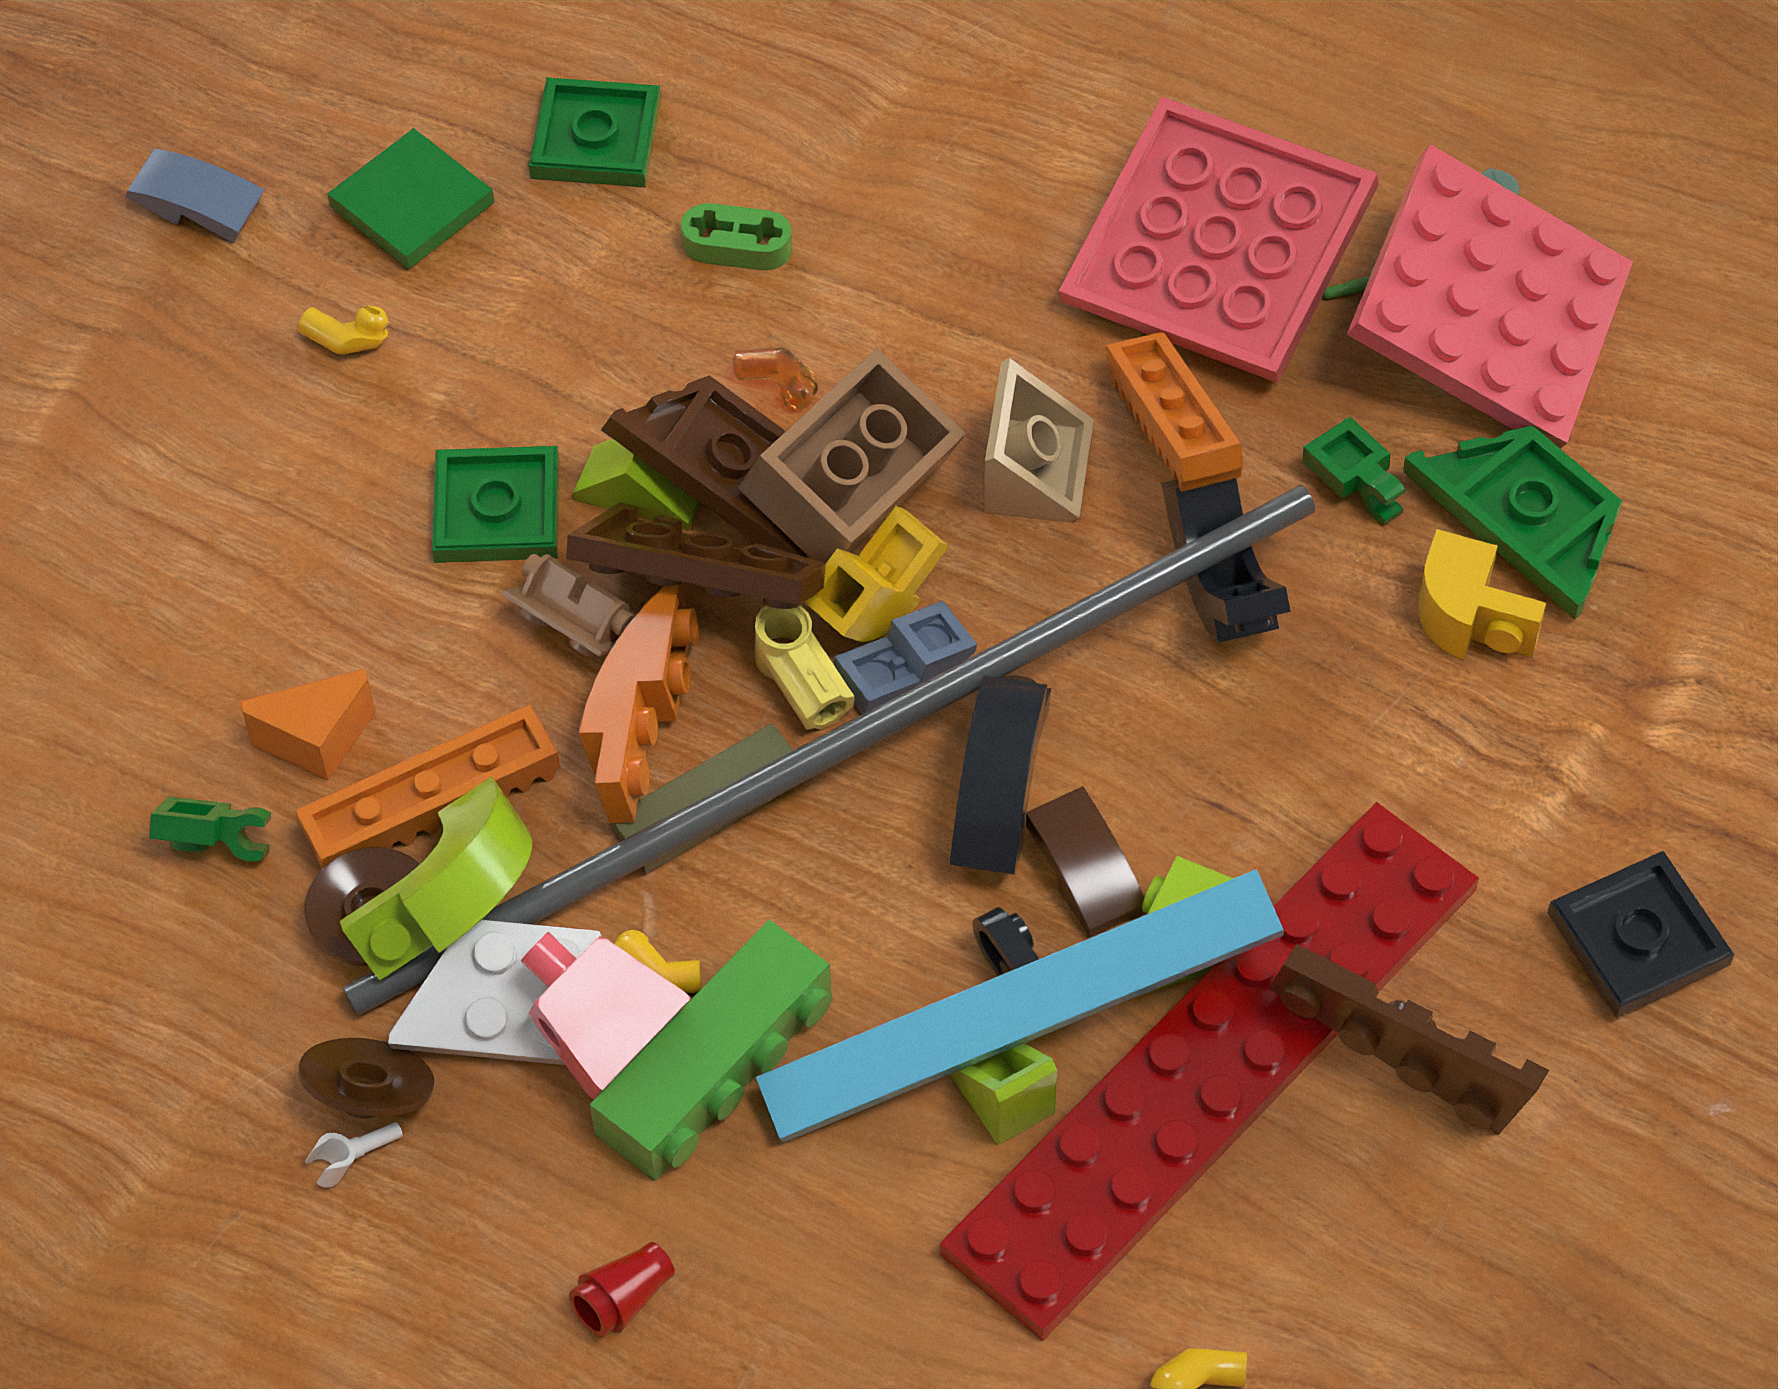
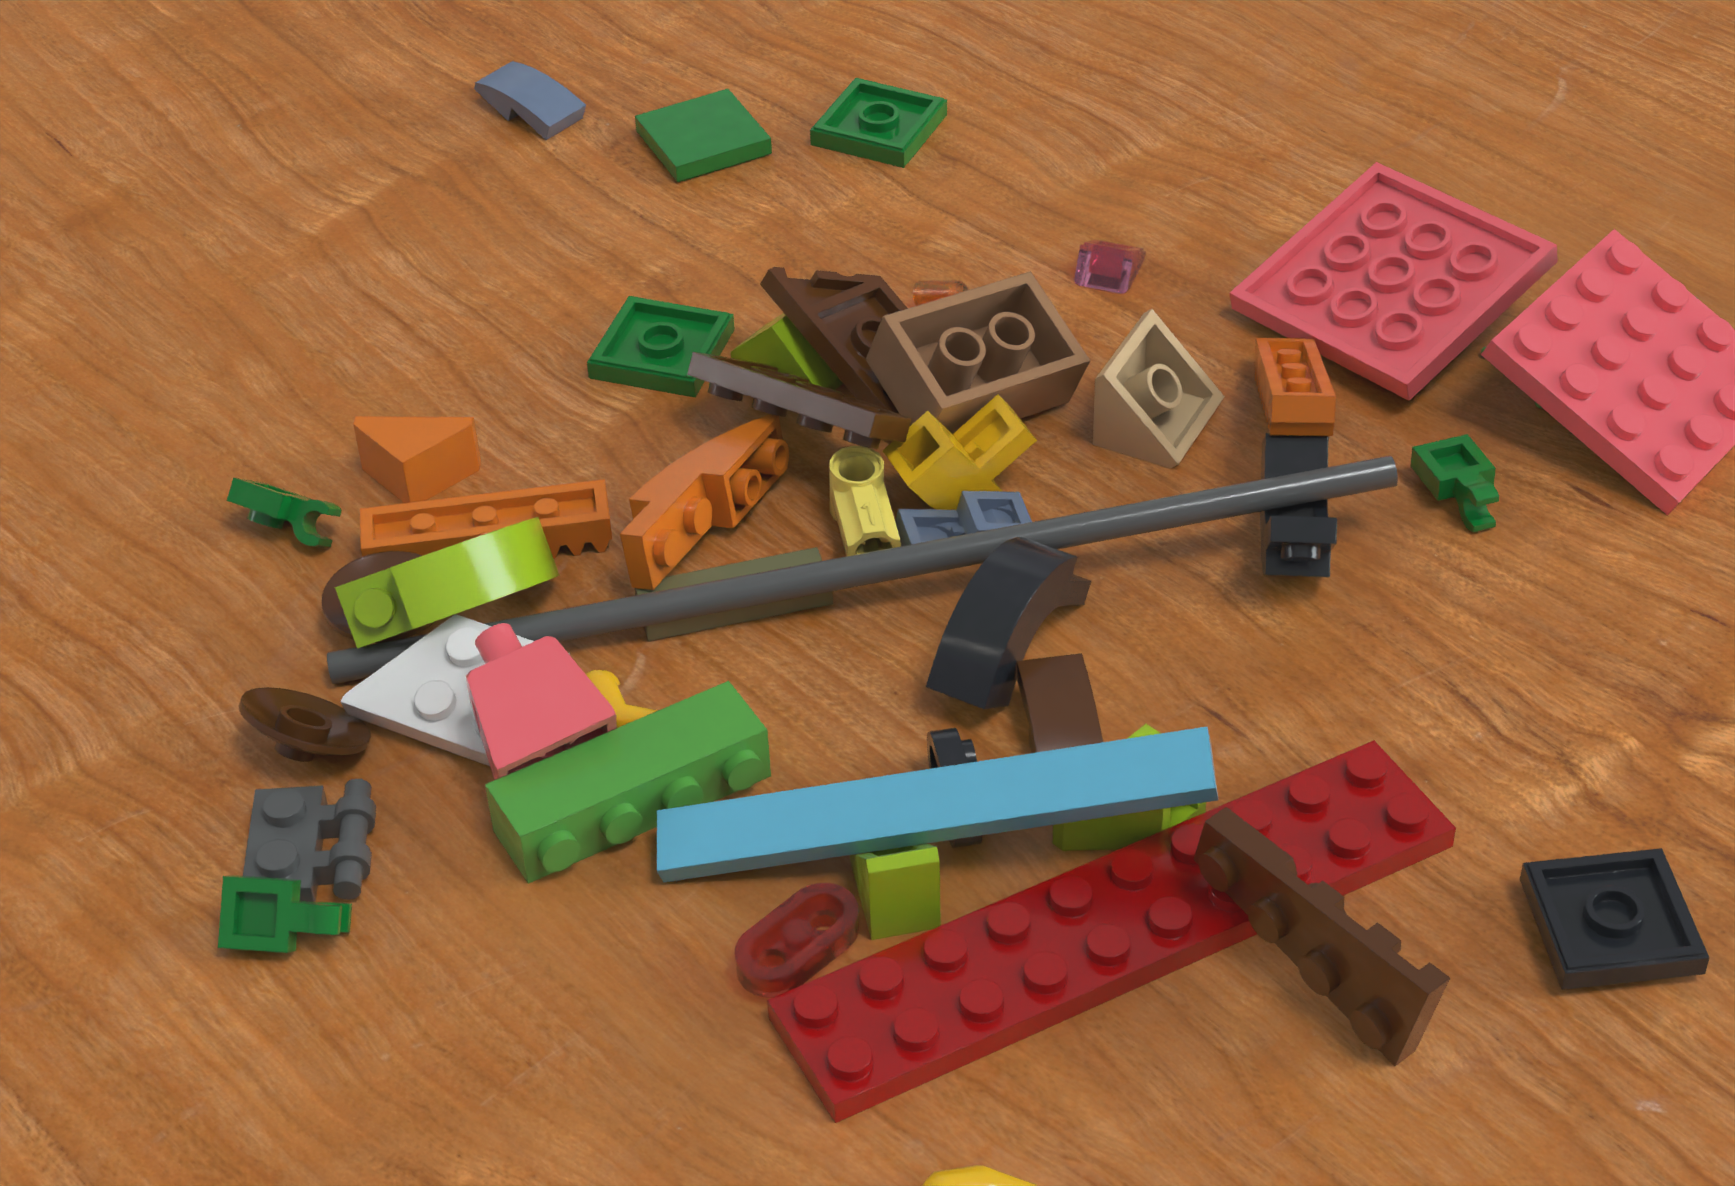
camera: 20 degrees right, 15 degrees down
(342, 1151) = (247, 775): white hand -> none
(348, 337) = (596, 211): yellow arm -> none
(409, 1215) = (290, 832): none -> dark grey plate
(436, 1298) = (269, 913): none -> green plate
(549, 601) = (666, 412): medium nougat hinge -> none
(618, 1290) = (440, 954): red cone -> none
(736, 236) = (963, 209): bright green beam -> none
(916, 274) = (1108, 265): none -> clear pink slope
(937, 1176) = (792, 944): none -> clear red plate
(1462, 607) = (1531, 602): yellow brick -> none
(1530, 503) = (1622, 543): green wing -> none

